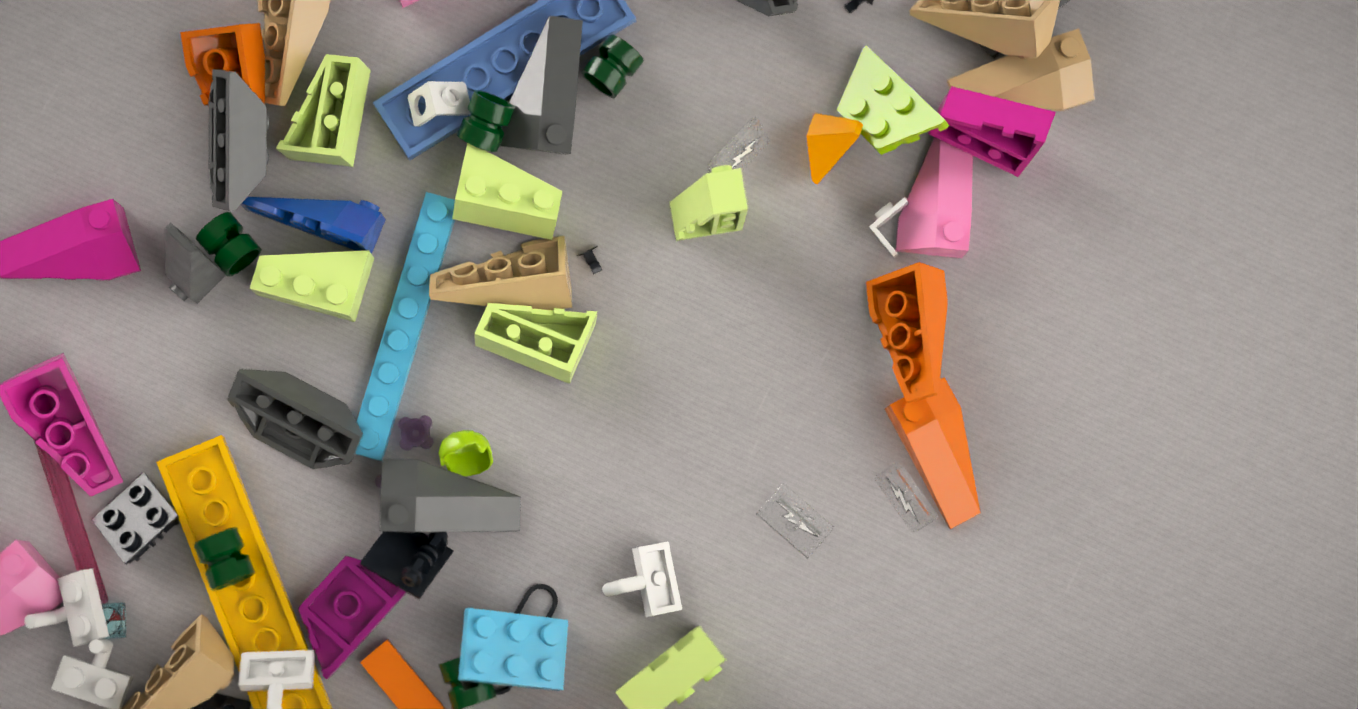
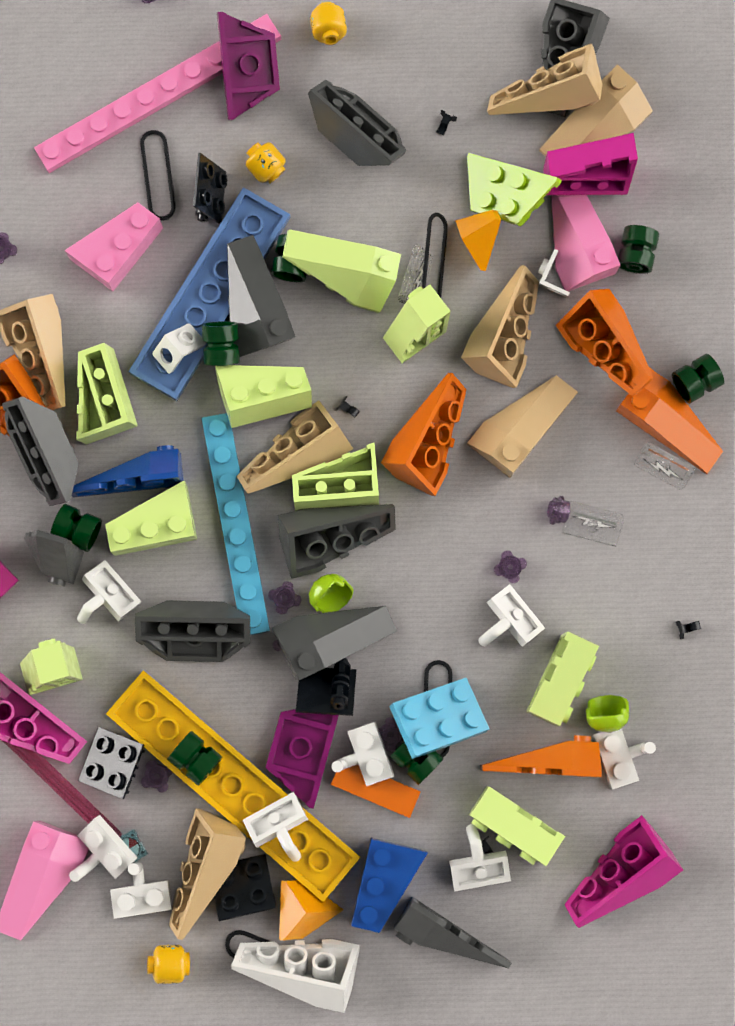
camera: 20 degrees left, 0 degrees up
(125, 381) = (50, 666): none -> yellowish green wedge
(167, 558) = (149, 779): none -> clear purple plate
(229, 331) = (108, 591): none -> white plate
(416, 650) = (368, 753): none -> white plate
(444, 635) = (390, 742): none -> clear purple plate
(492, 385) = (321, 534): none -> dark grey wedge
(652, 340) = (422, 445): none -> orange wedge
(670, 110) = (352, 269): none -> yellowish green wedge
(679, 513) = (502, 568): none -> clear purple plate
(763, 487) = (558, 510): none -> clear purple plate
(765, 375) = (517, 429): none -> tan wedge
(782, 143) = (442, 253): none -> black piece
(796, 266) = (500, 337): none -> tan wedge
(841, 688) = (687, 628): none -> black piece
(980, 415) = (700, 377): none -> dark green wheel
(995, 247) = (638, 247): none -> dark green wheel

